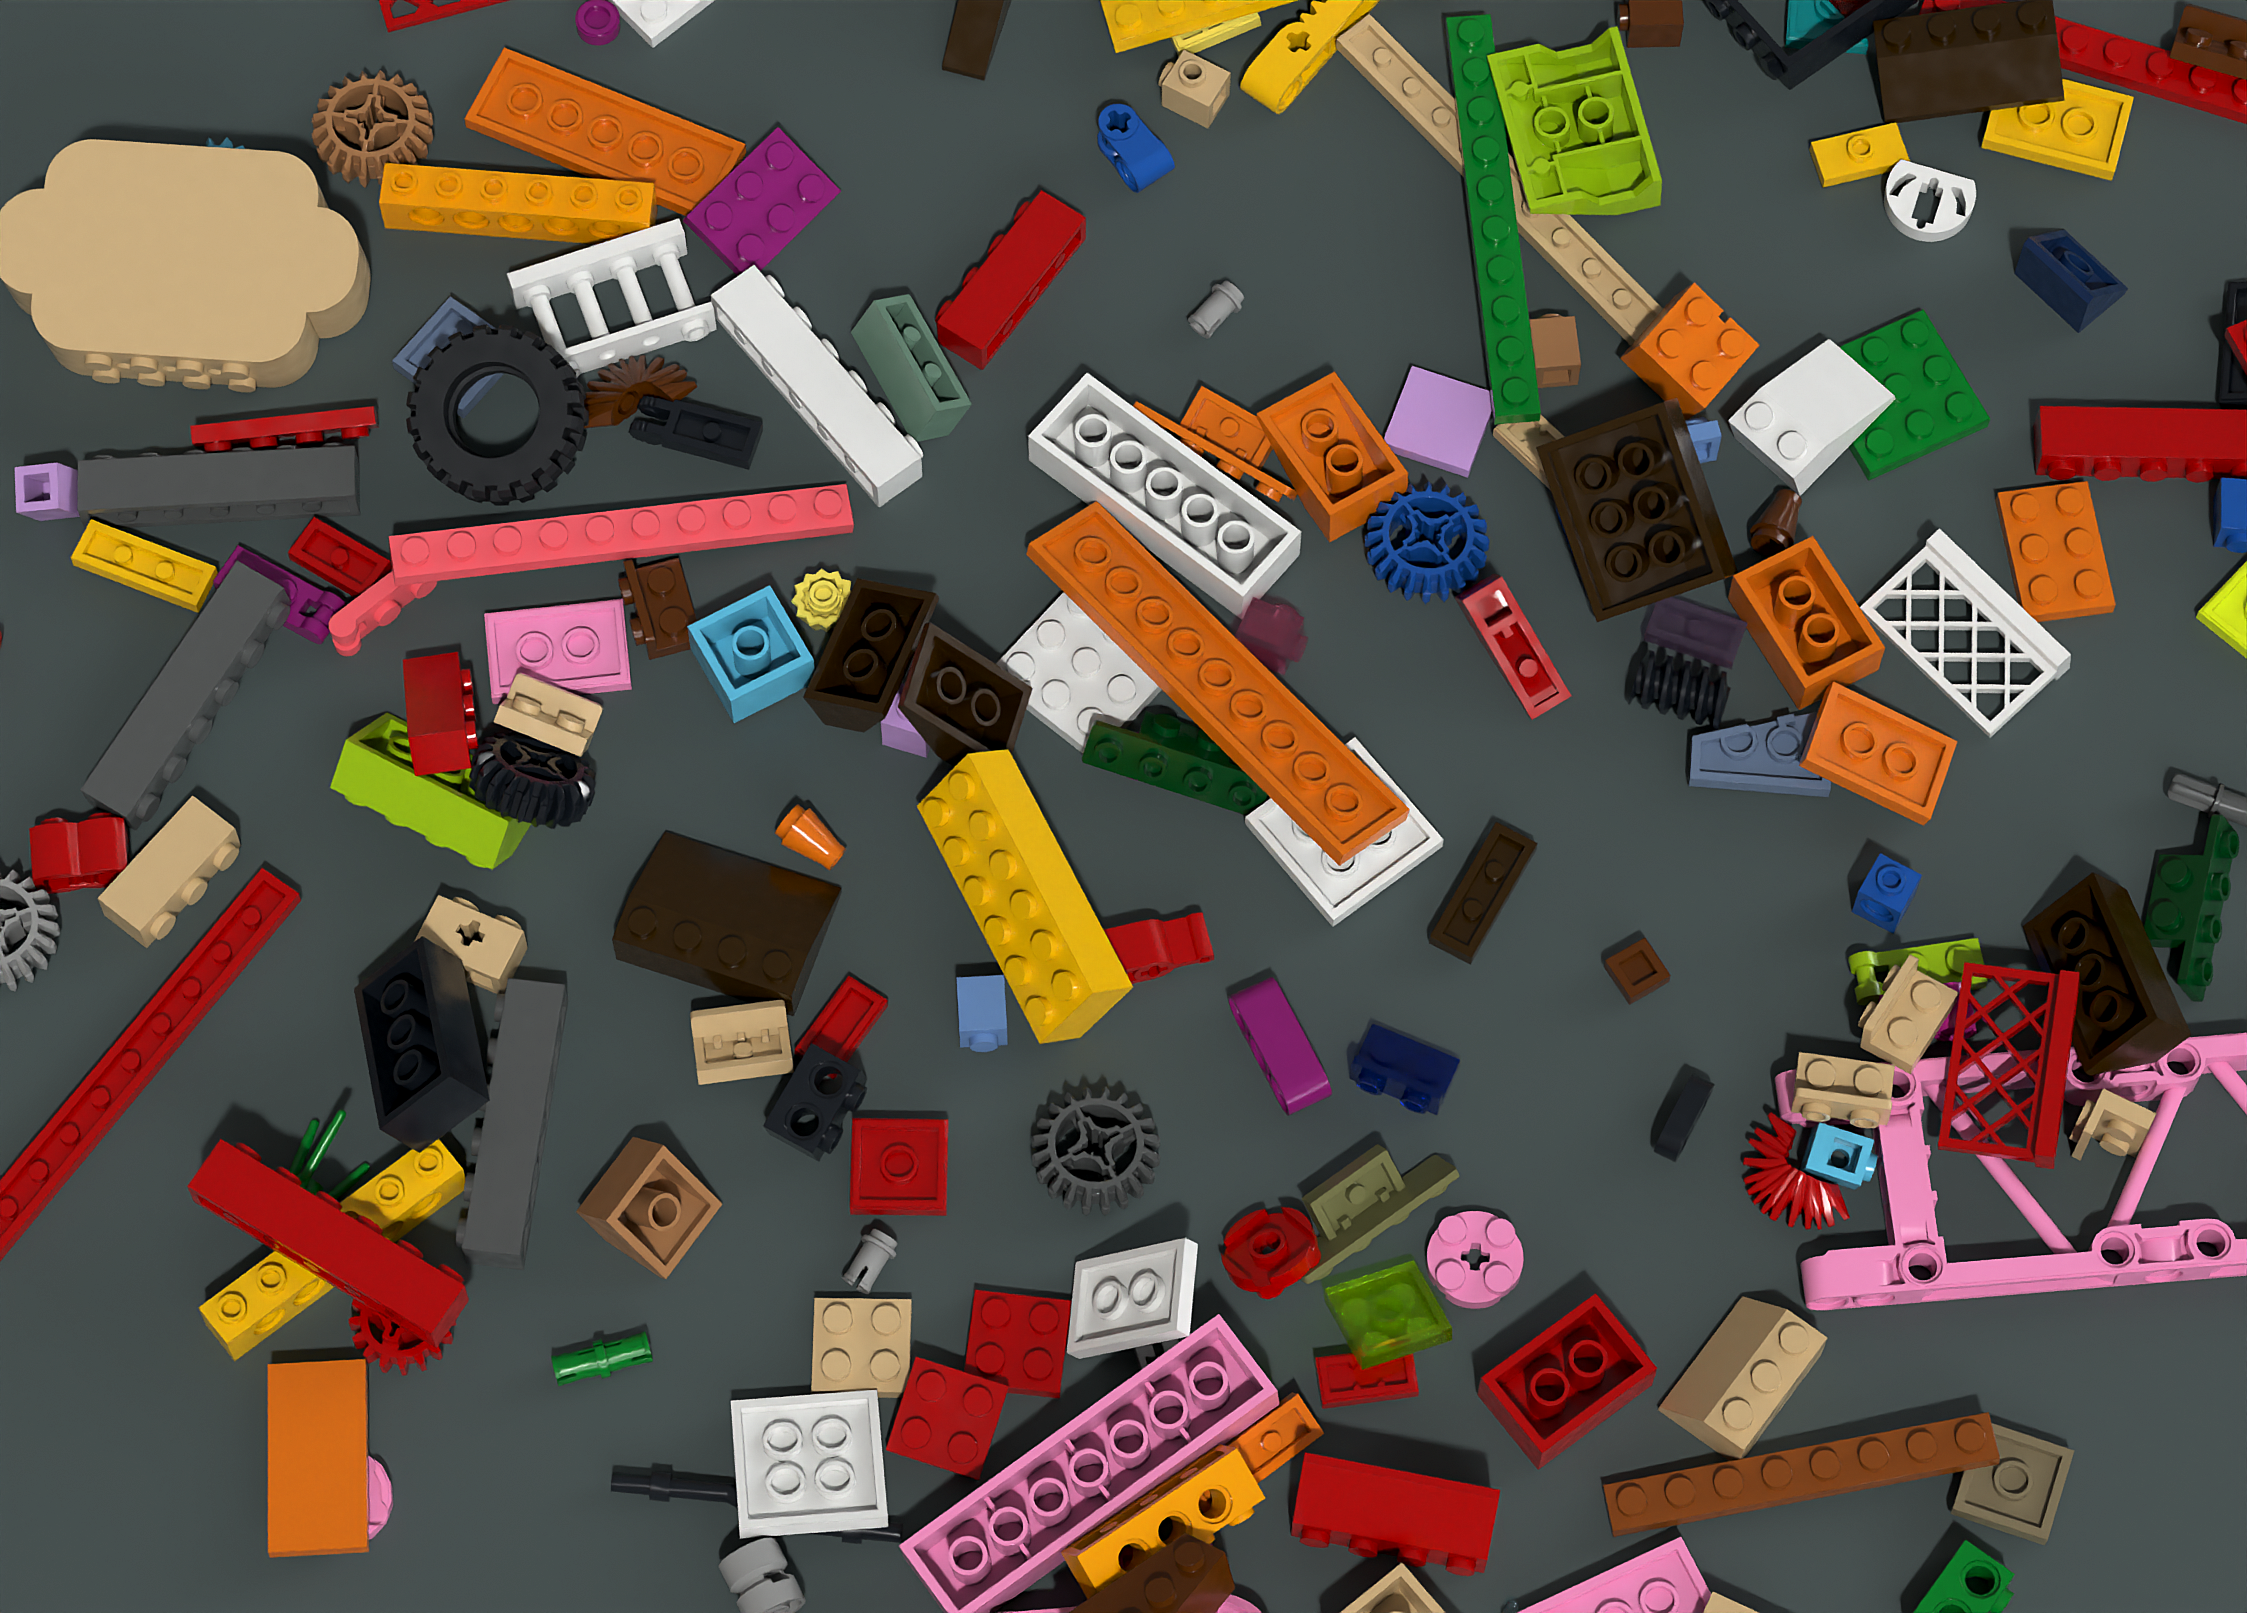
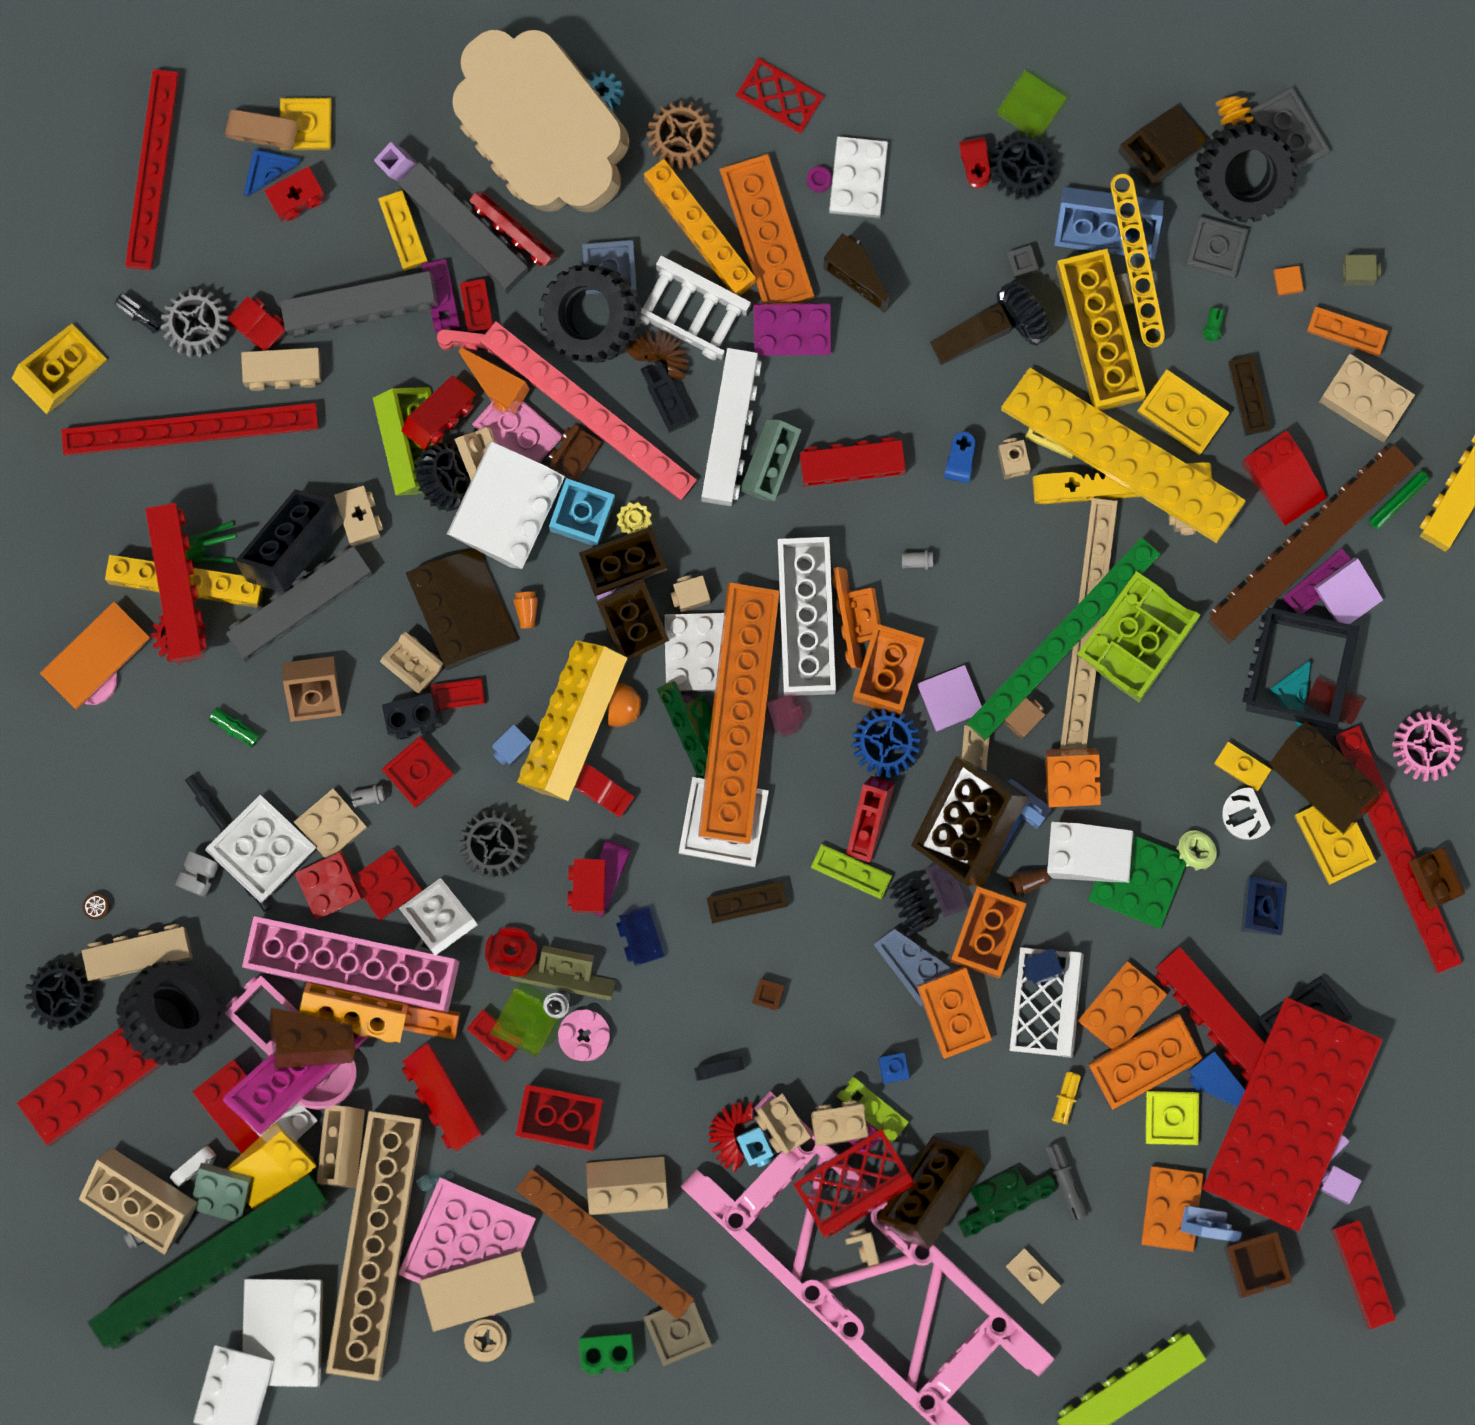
camera: 50 degrees right, 15 degrees up
(472, 614) = (500, 386): none -> orange slope
(649, 736) = (505, 505): none -> white slope
(771, 63) = (852, 267): none -> dark brown slope
(992, 614) = (690, 593): none -> tan brick
(1070, 823) = (623, 706): none -> orange helmet
(1275, 1062) = (588, 886): none -> red brick
(1414, 1248) = (557, 1004): none -> light grey cone
(1561, 732) = (851, 871): none -> lime tile
(1917, 590) = (1043, 967): none -> dark blue brick
(1924, 290) = (1203, 844): none -> yellowish green gear
(2120, 716) = (1066, 1098): none -> yellow axle
(2156, 579) = (1145, 1061): none -> orange tile

